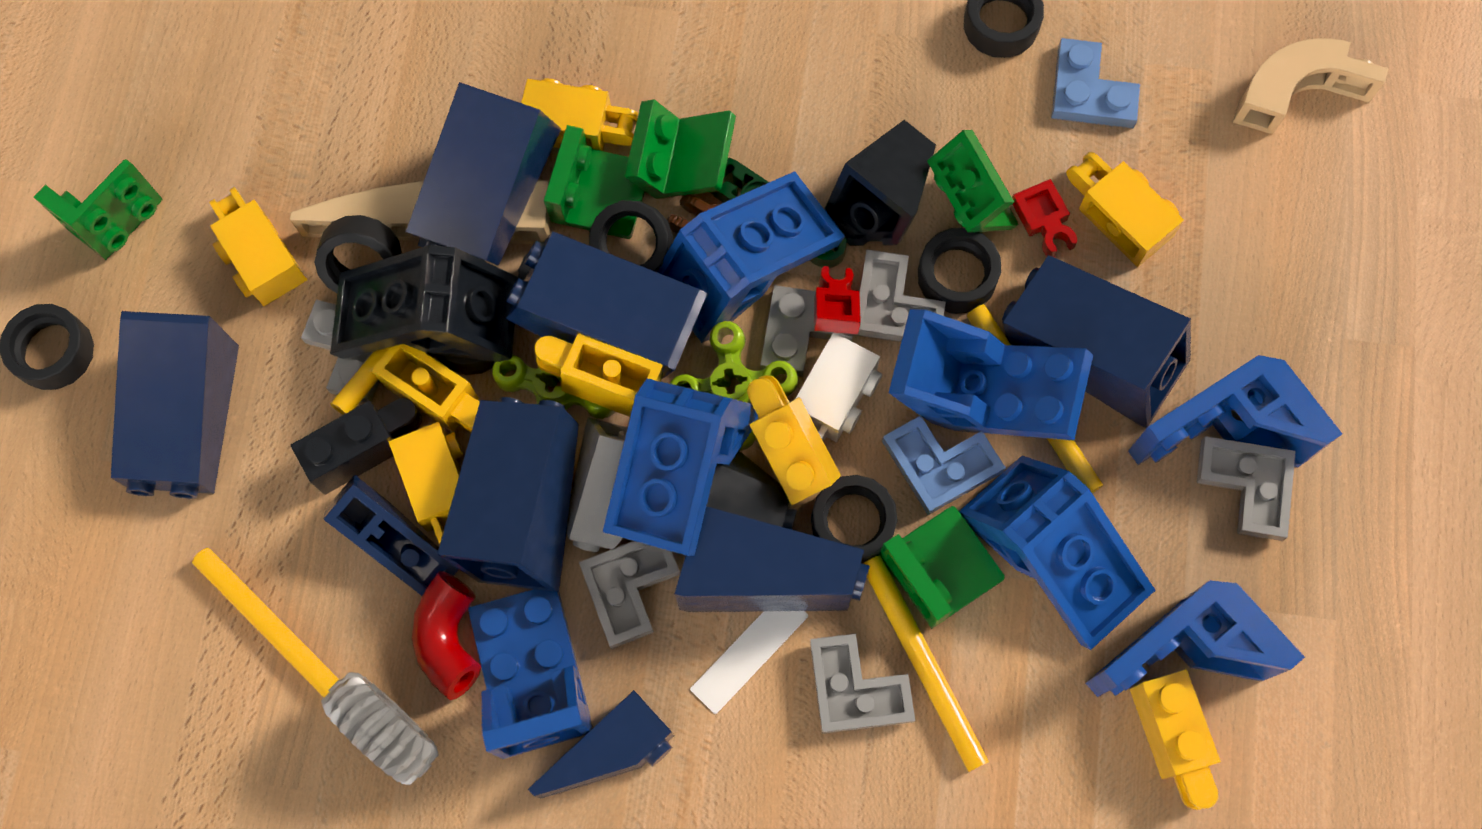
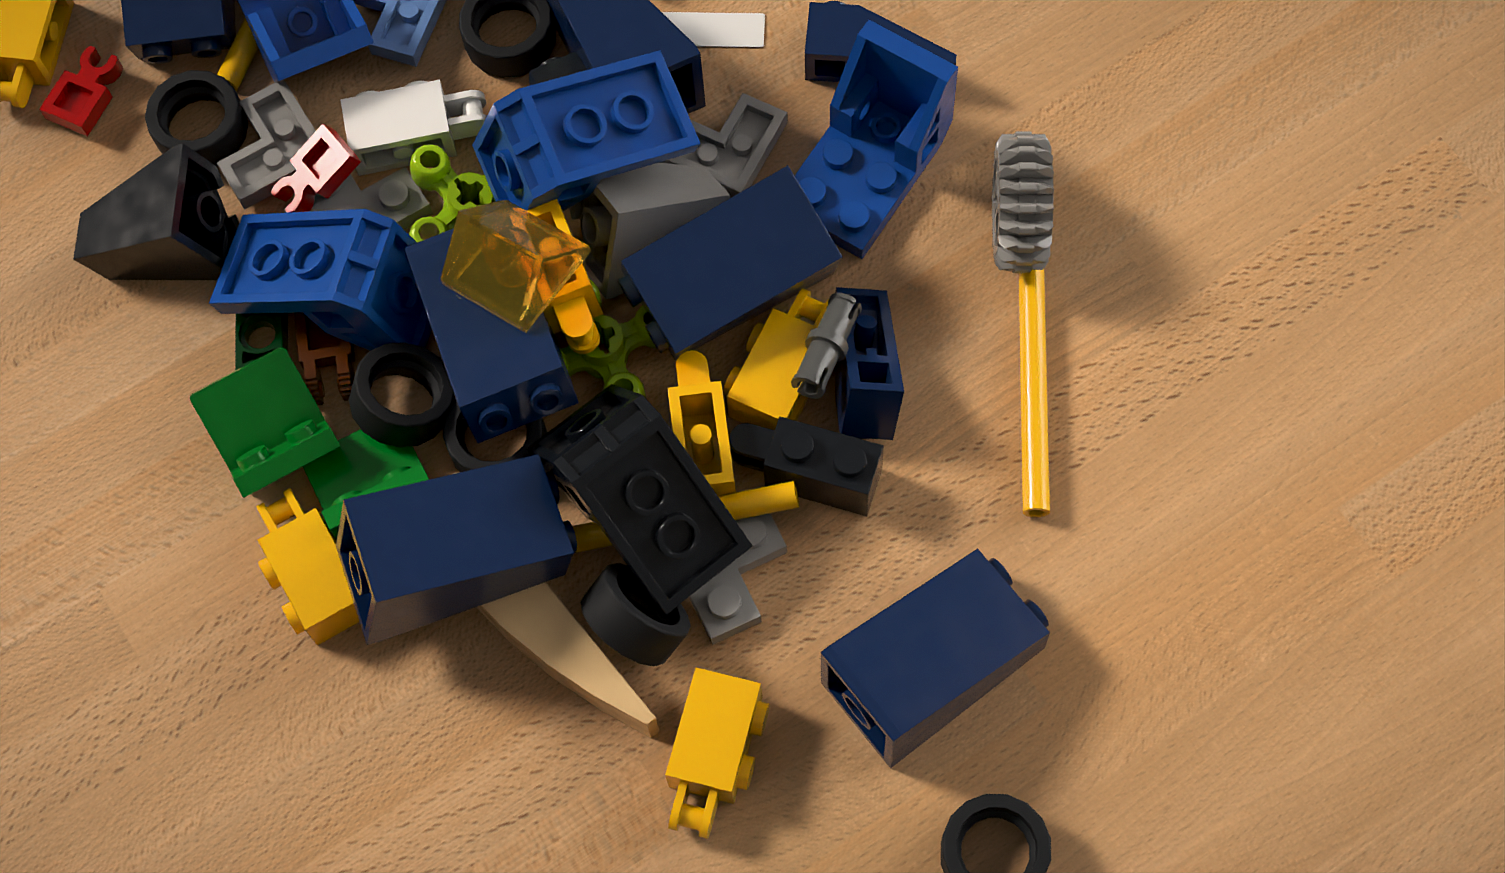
camera: 130 degrees left, 5 degrees down
(402, 503) = (826, 345): none -> dark grey pin
(436, 637) = (909, 251): red cylinder -> none
(619, 338) = (510, 261): none -> clear yellow slope
(790, 441) = (491, 76): yellow brick -> none
(972, 185) = (102, 137): green bracket -> none

